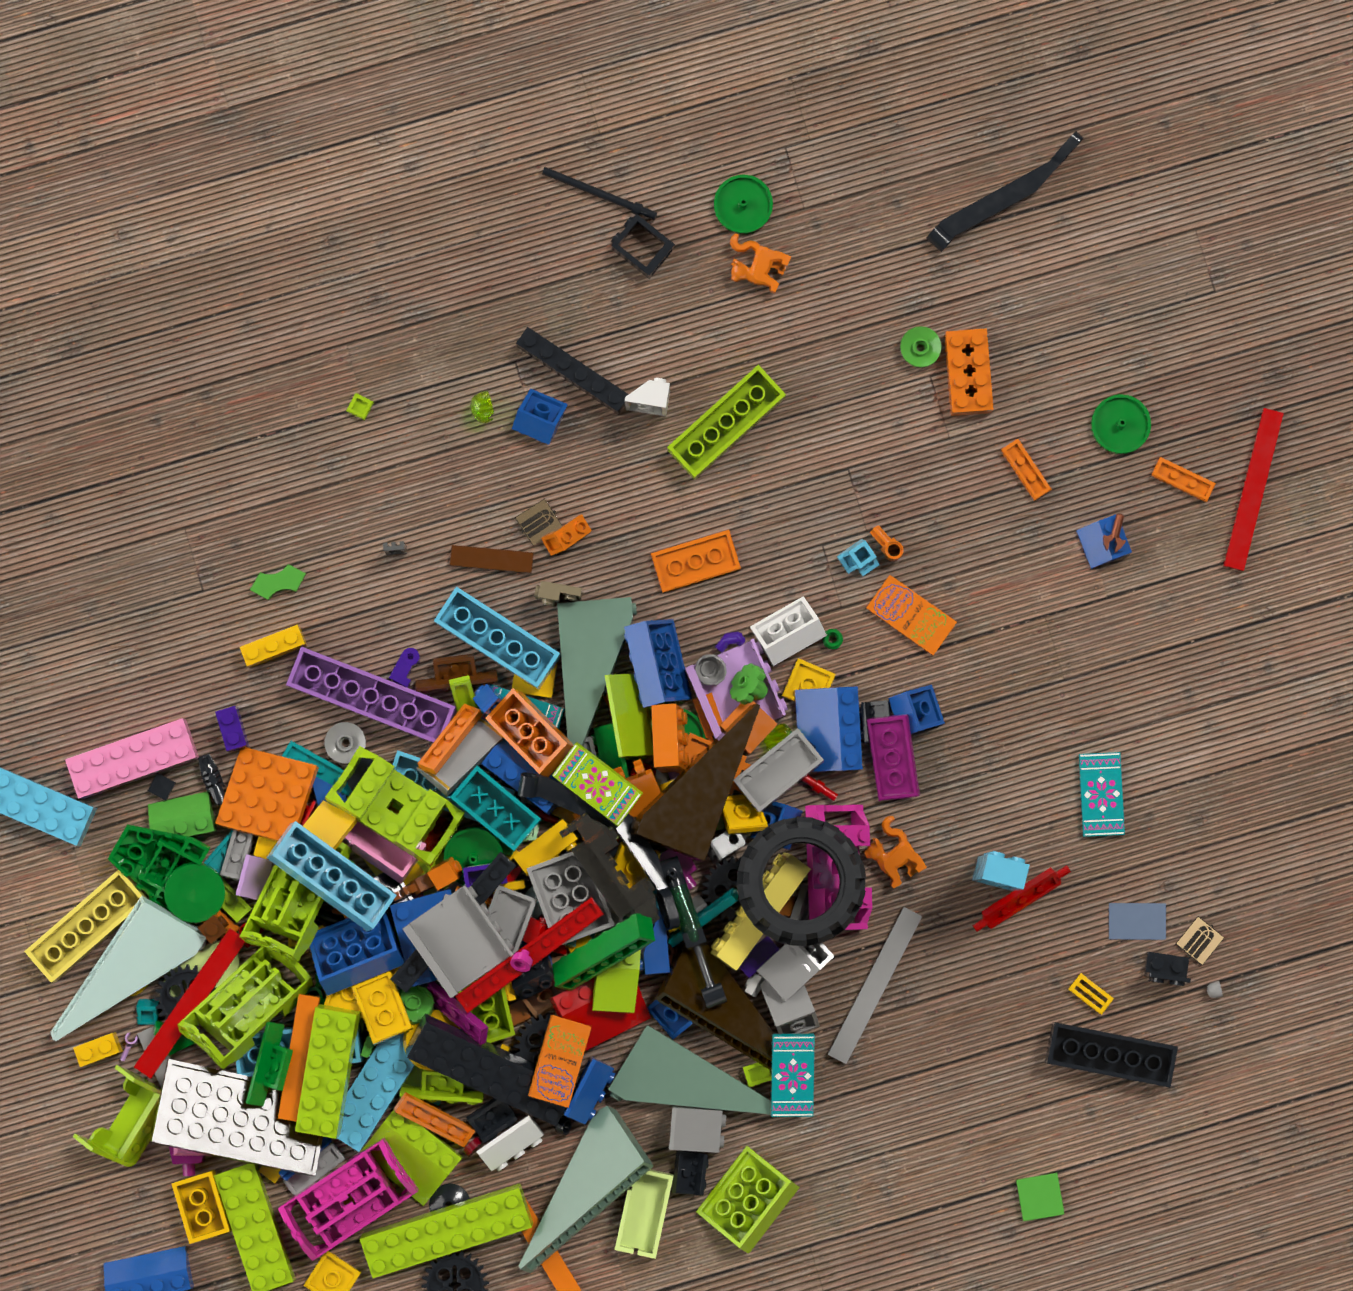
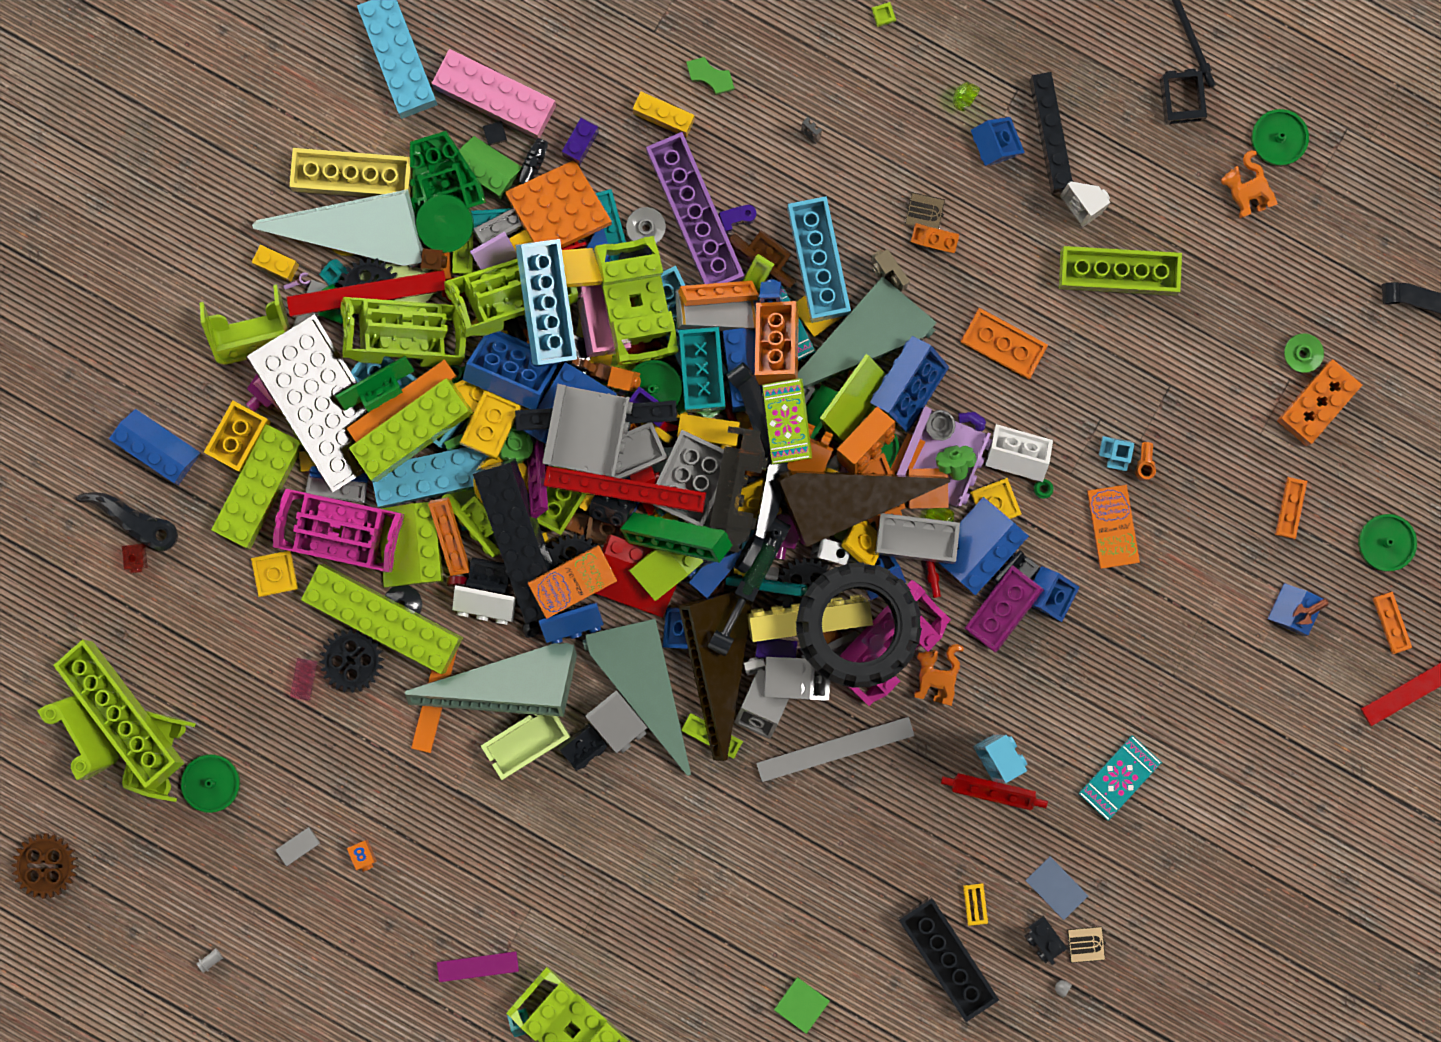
camera: 40 degrees right, 0 degrees up
(491, 559) = (868, 204): reddish brown tile -> none
(521, 961) = (615, 487): dark pink tile -> none
(747, 1199) = (603, 805): lime slope -> none
(792, 1075) = (718, 751): teal tile -> none

